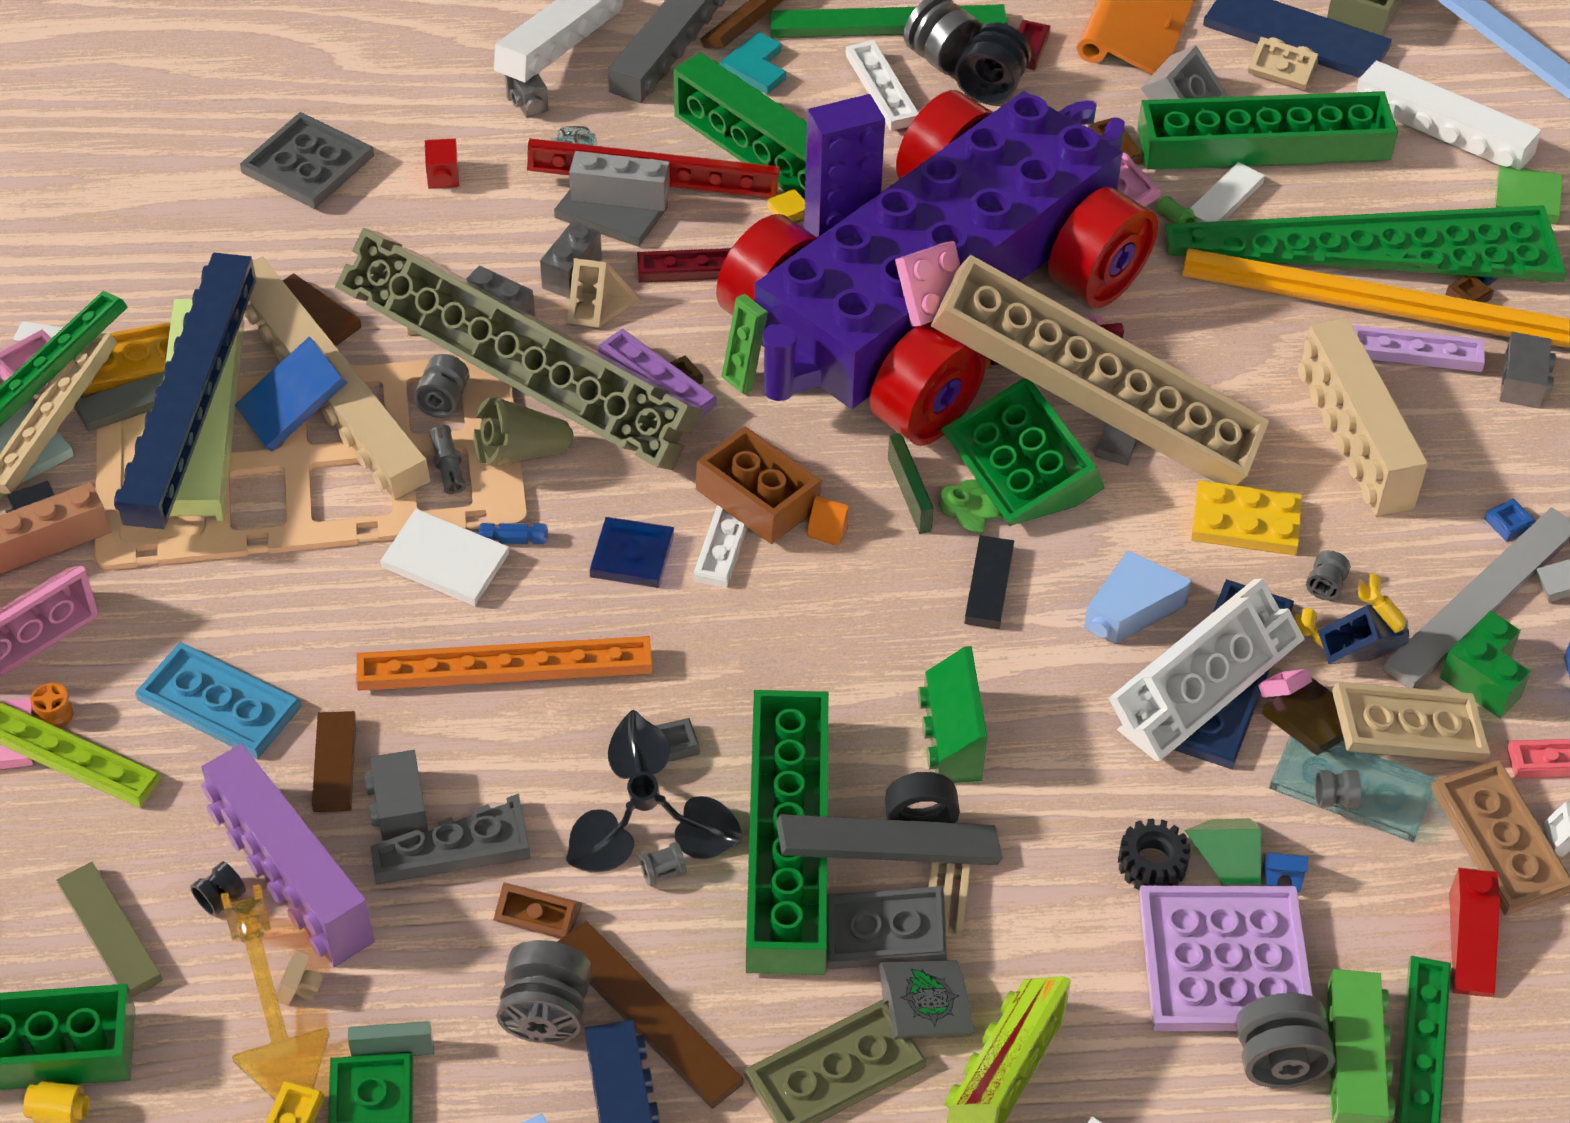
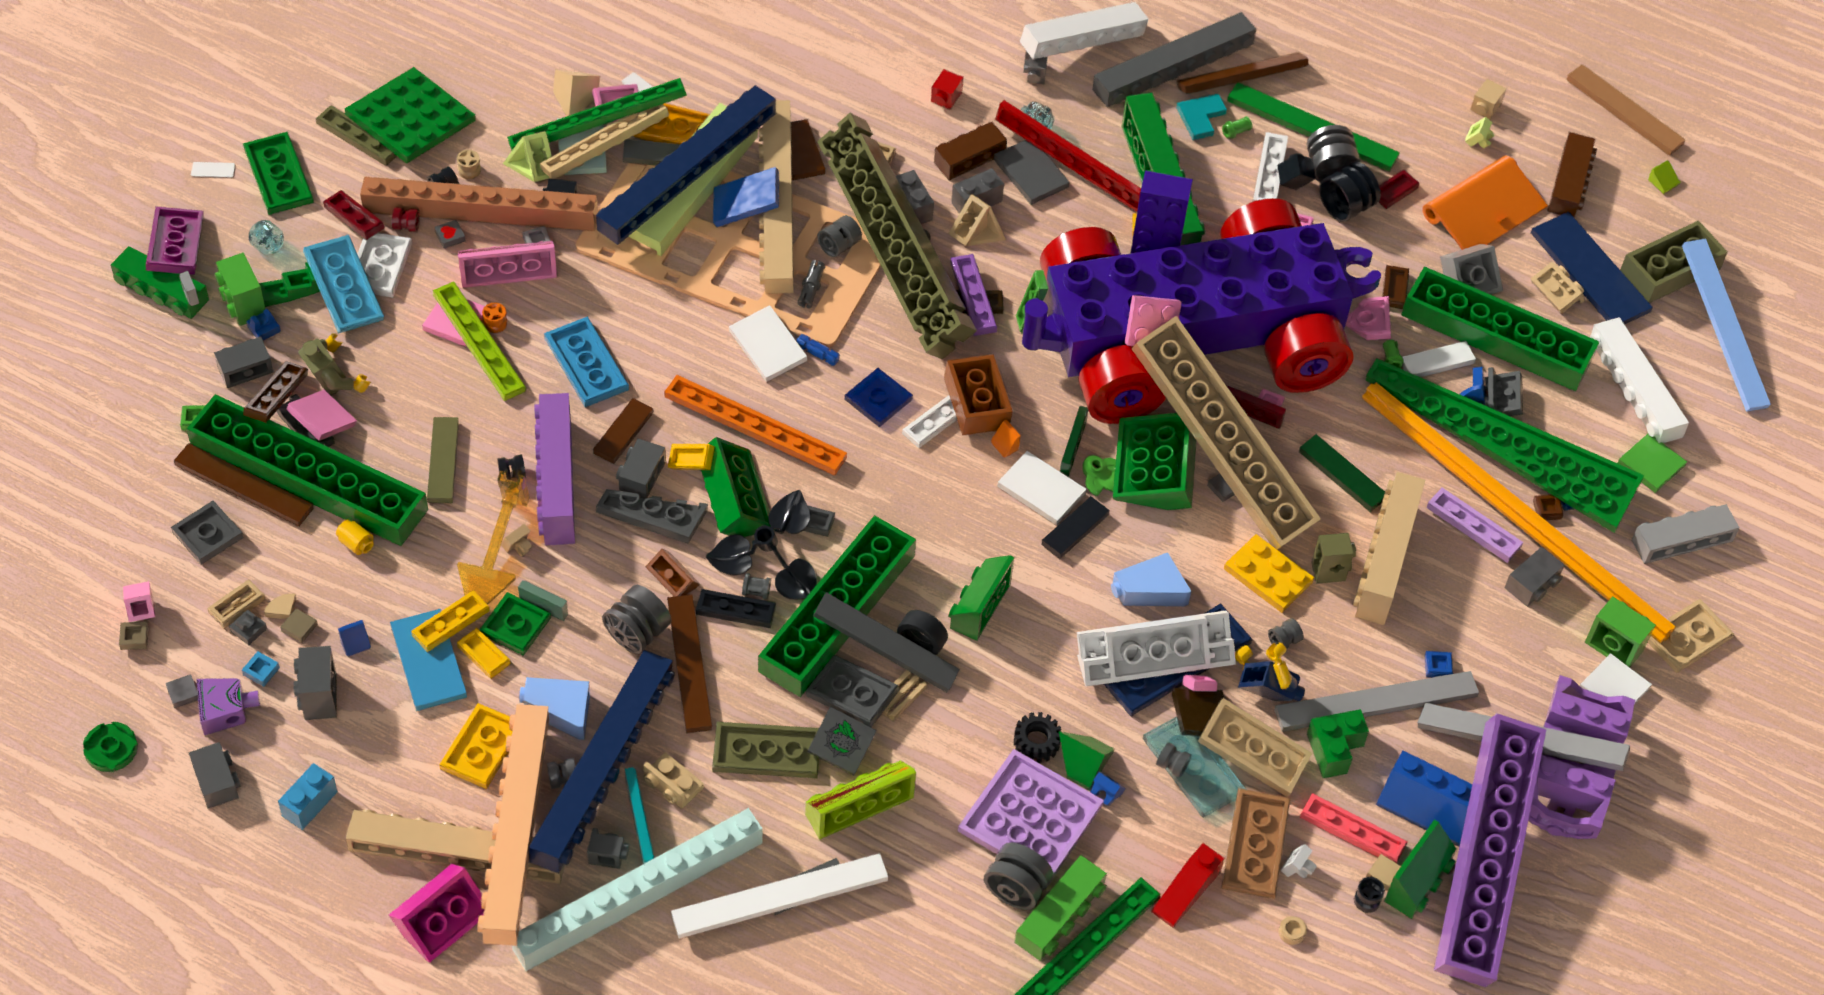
camera: 30 degrees right, 5 degrees up
(33, 576) = (536, 235): none -> light grey tile
(307, 160) = (868, 46): dark grey plate -> none
(456, 744) = (691, 456): none -> yellow tile
(518, 433) = (861, 290): olive cone -> none
(522, 218) = (969, 150): none -> reddish brown brick
(538, 757) = (735, 490): none -> green slope
(619, 181) = (1043, 155): light grey brick -> none
(654, 907) = (736, 608): none -> black tile
(680, 264) = (1039, 226): dark red tile -> none
(804, 61) = (1231, 129): none -> bright green pin
(913, 556) = (1041, 487): none -> white tile
(917, 69) = (1296, 171): none -> black brick
(1232, 365) = (1342, 472): none -> dark green tile
(1293, 198) = (1478, 390): none -> blue tile
(1311, 459) = (1333, 558): none -> olive brick
(1326, 193) = (1505, 392): none -> dark grey bracket

